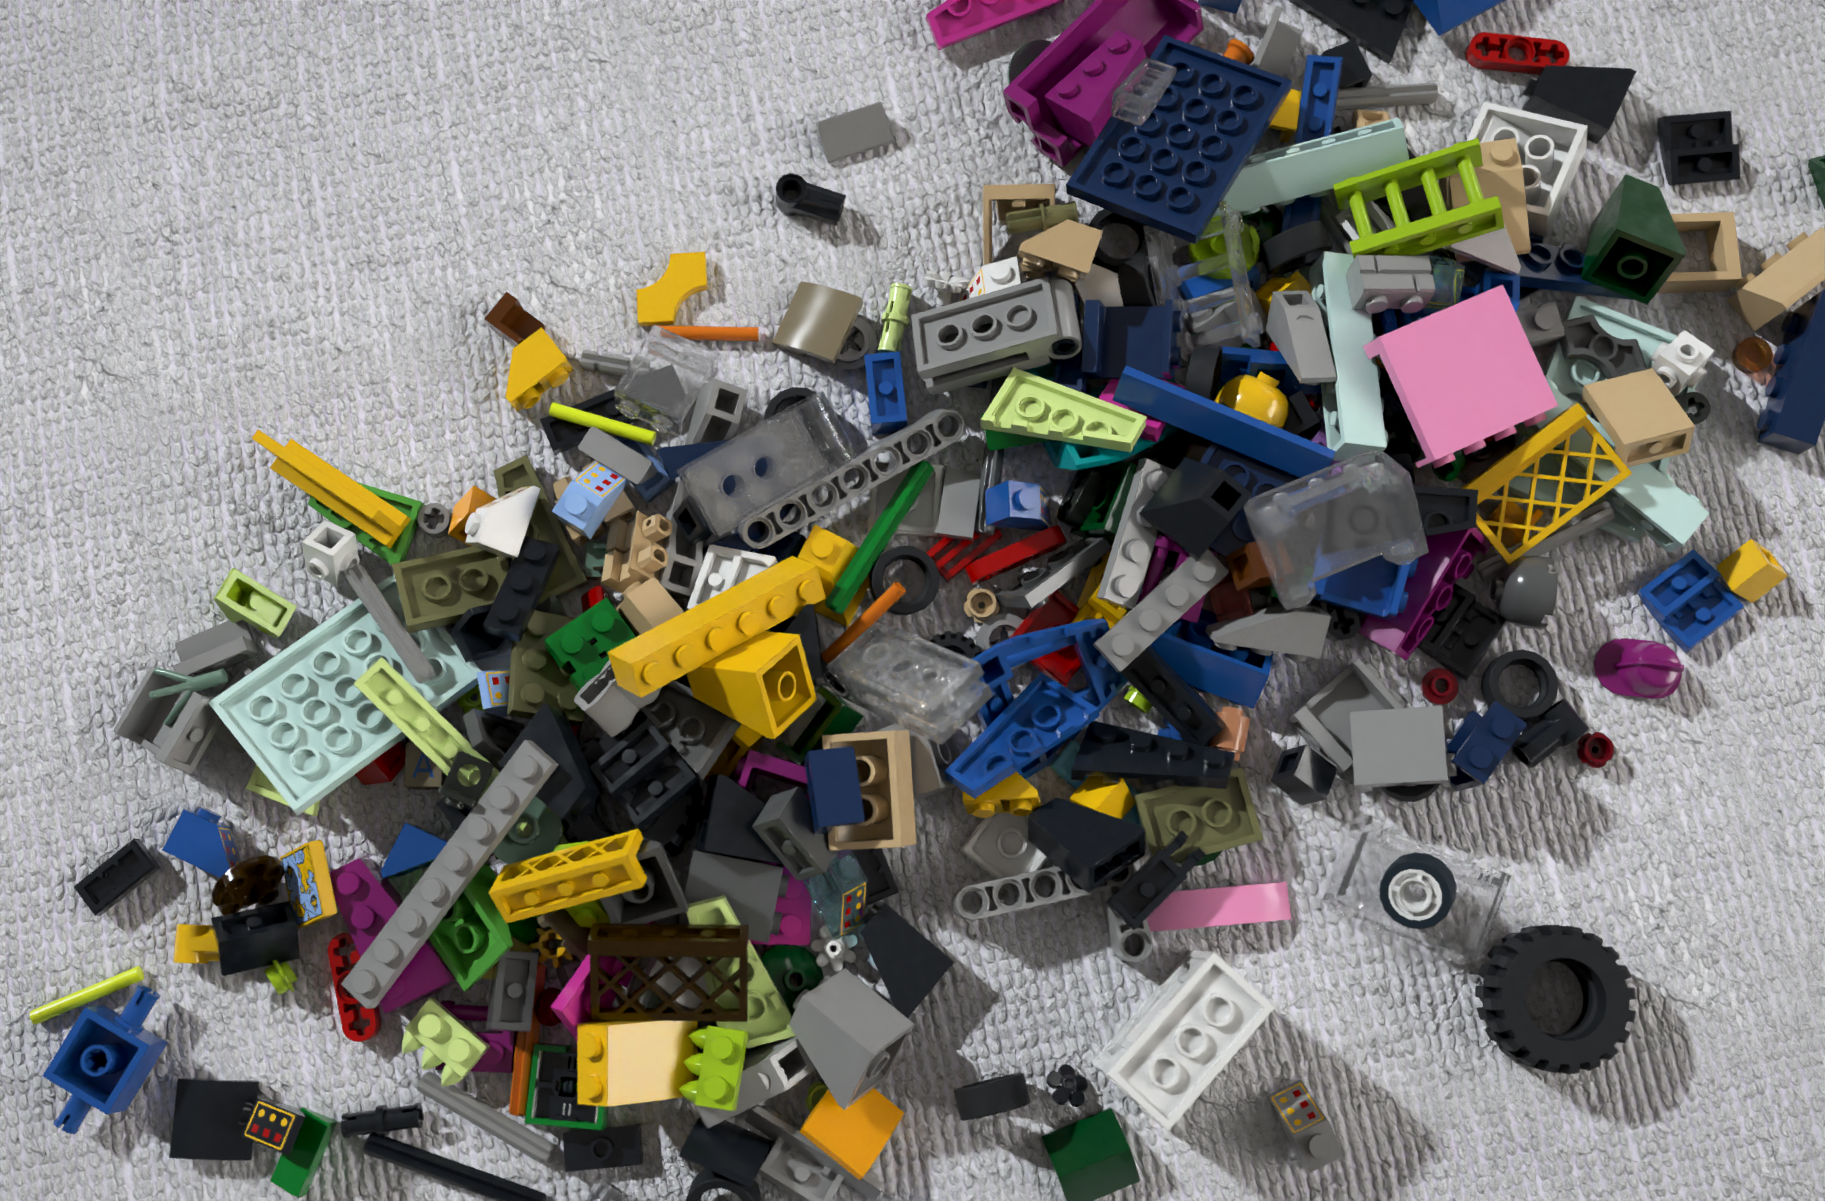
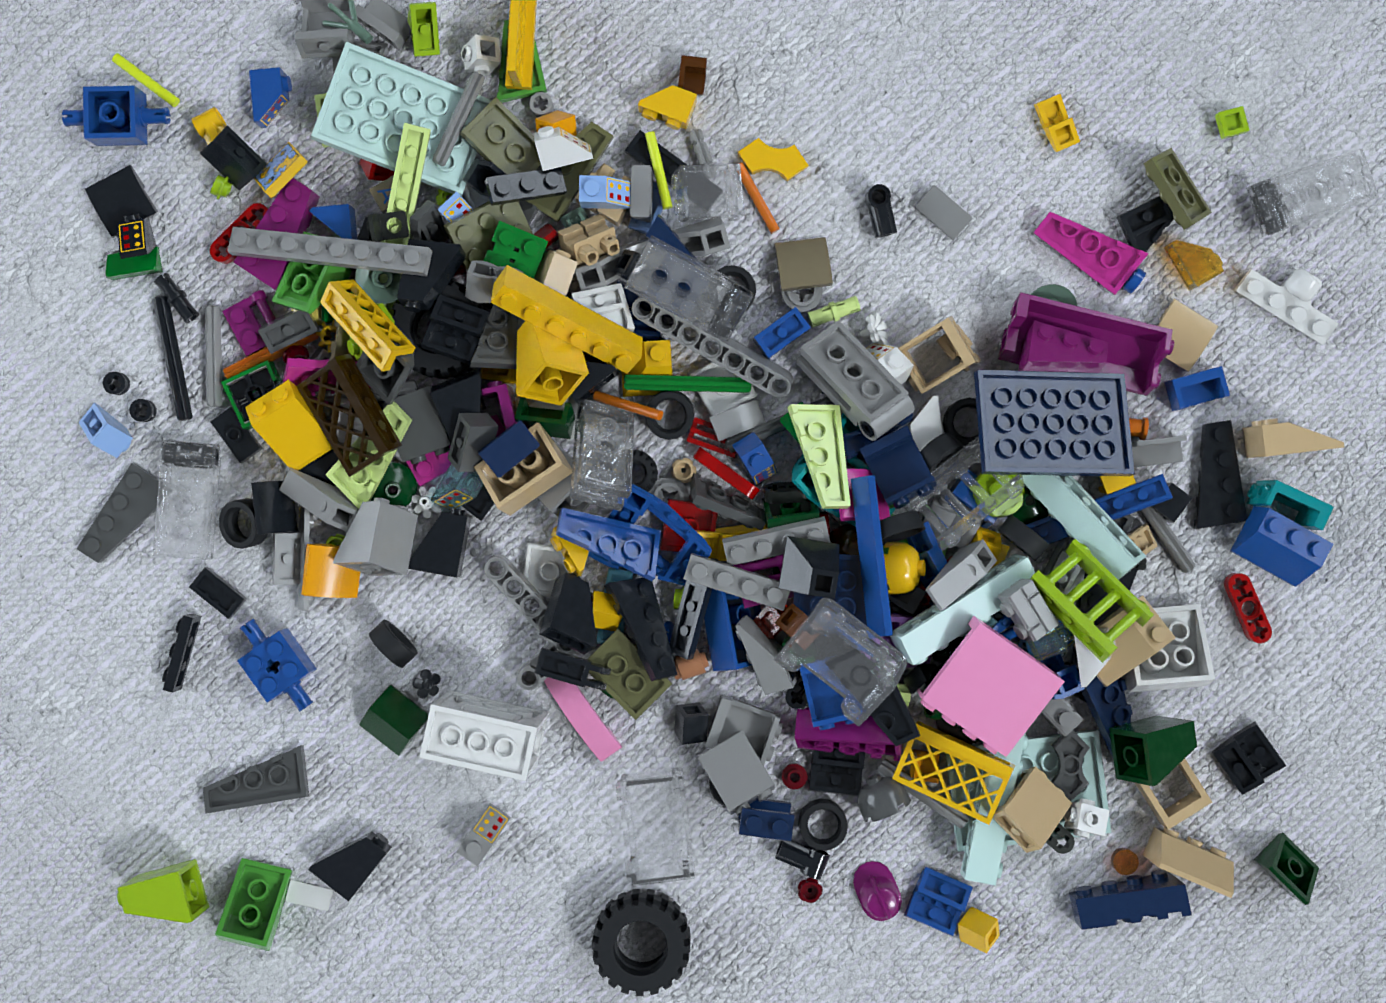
camera: 65 degrees right, 10 degrees up
(117, 877) = (220, 53): black plate -> none
(248, 884) = (259, 133): dark brown dish -> none
(445, 1041) = (240, 307): yellowish green plate -> none
(717, 1067) = (314, 474): lime plate -> none
(1041, 217) = (948, 367): olive axle -> none
(1064, 248) = (933, 392): tan slope -> none
(1139, 93) = (1057, 382): clear slope -> none
(1403, 904) = (669, 831): wheel -> none
(1579, 95) = (1237, 663): black slope -> none

